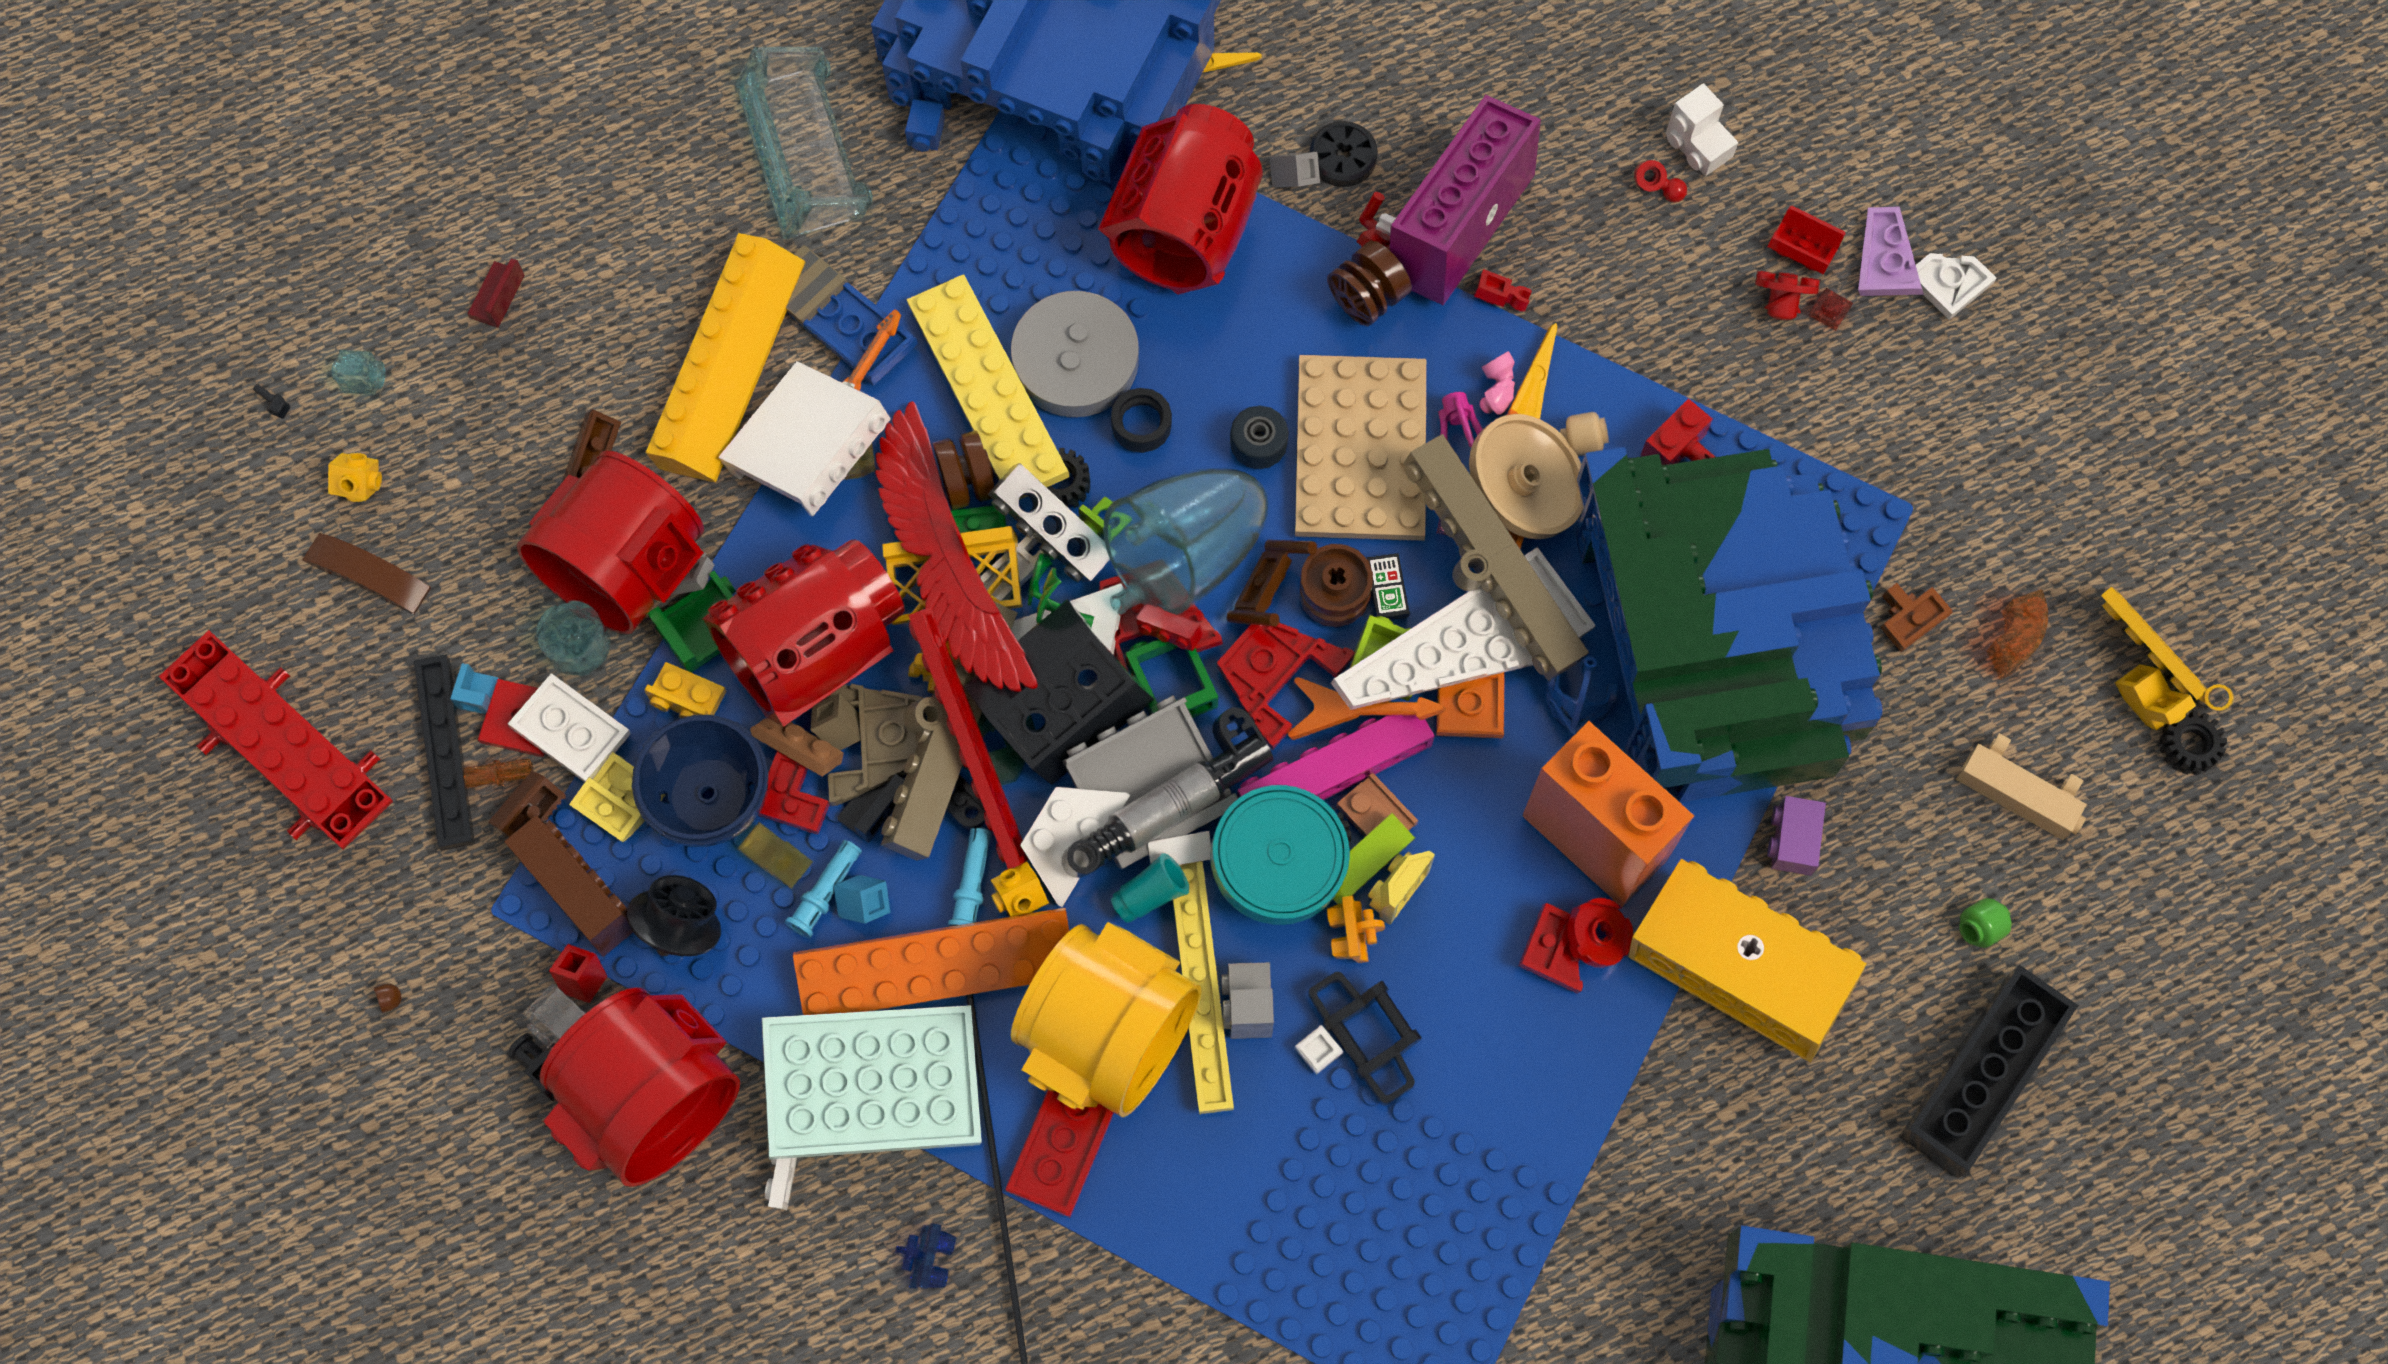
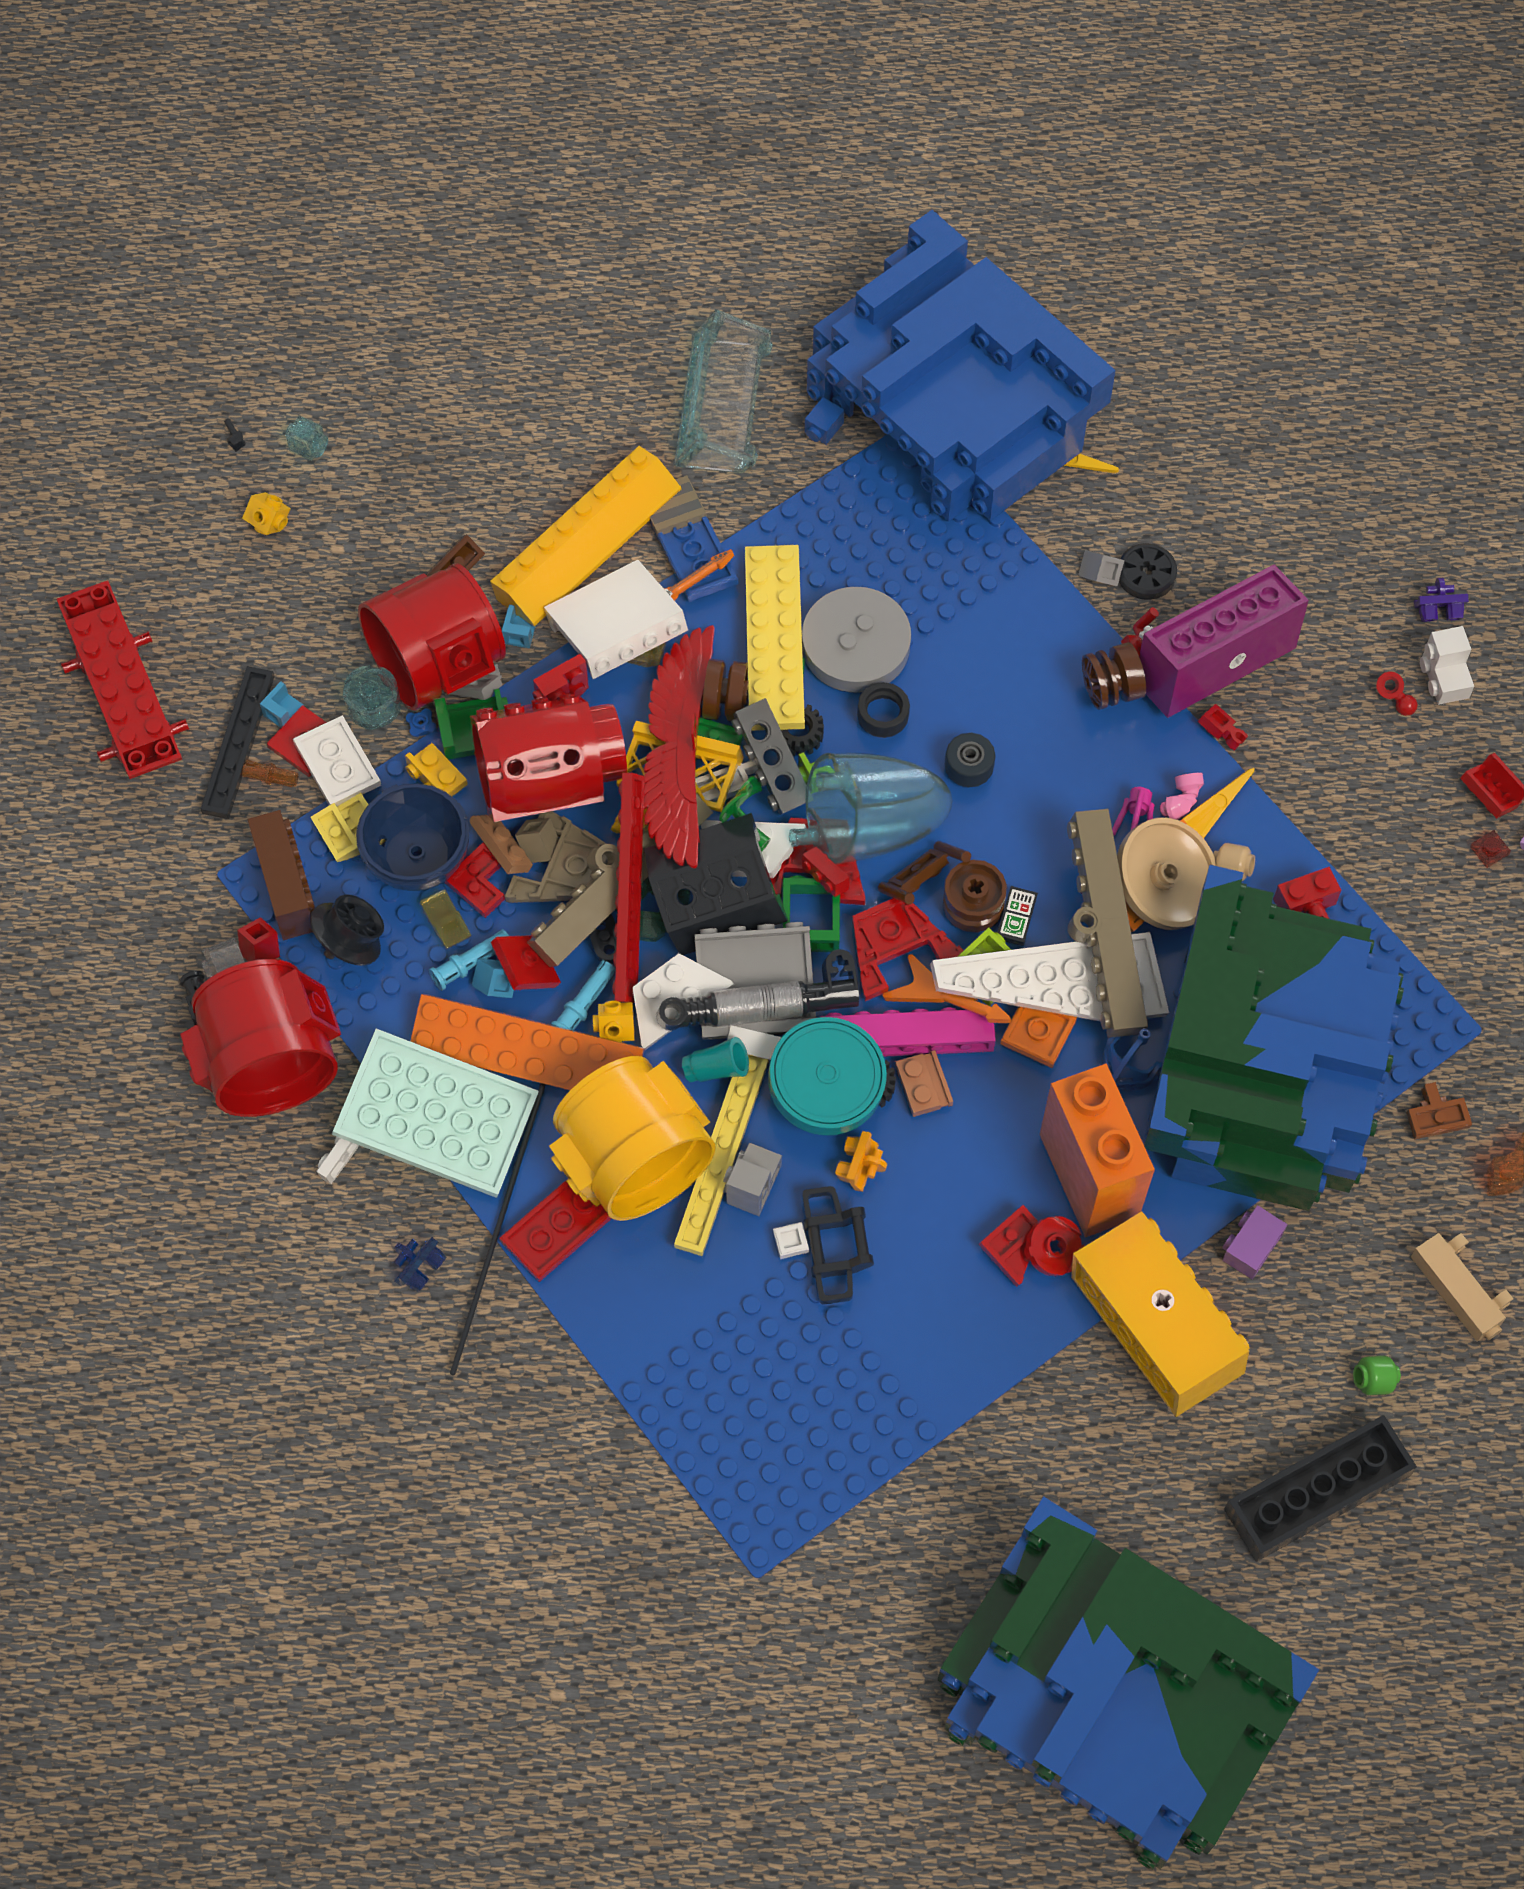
camera: 25 degrees right, 5 degrees down
(367, 572) = (244, 588): reddish brown slope -> none
(388, 996) = (113, 902): reddish brown hinge -> none
(497, 293) = (437, 420): dark red panel -> none
(531, 798) = (288, 799): reddish brown brick -> none
(640, 653) = (421, 729): none -> blue plate
(699, 493) = (517, 630): none -> dark azure panel
(781, 535) = (563, 679): none -> red plate
(870, 810) = (530, 914): black panel -> none
(887, 871) = (522, 964): none -> red plate
(1184, 198) = (994, 551): red piece -> none
(1352, 442) = (1036, 795): tan plate -> none
(1374, 854) = (902, 1111): lime tile -> none
(1405, 878) = (914, 1142): light yellow slope -> none
(1673, 63) = (1453, 603): none -> dark purple hips
(1785, 293) = (1455, 819): red plate -> none

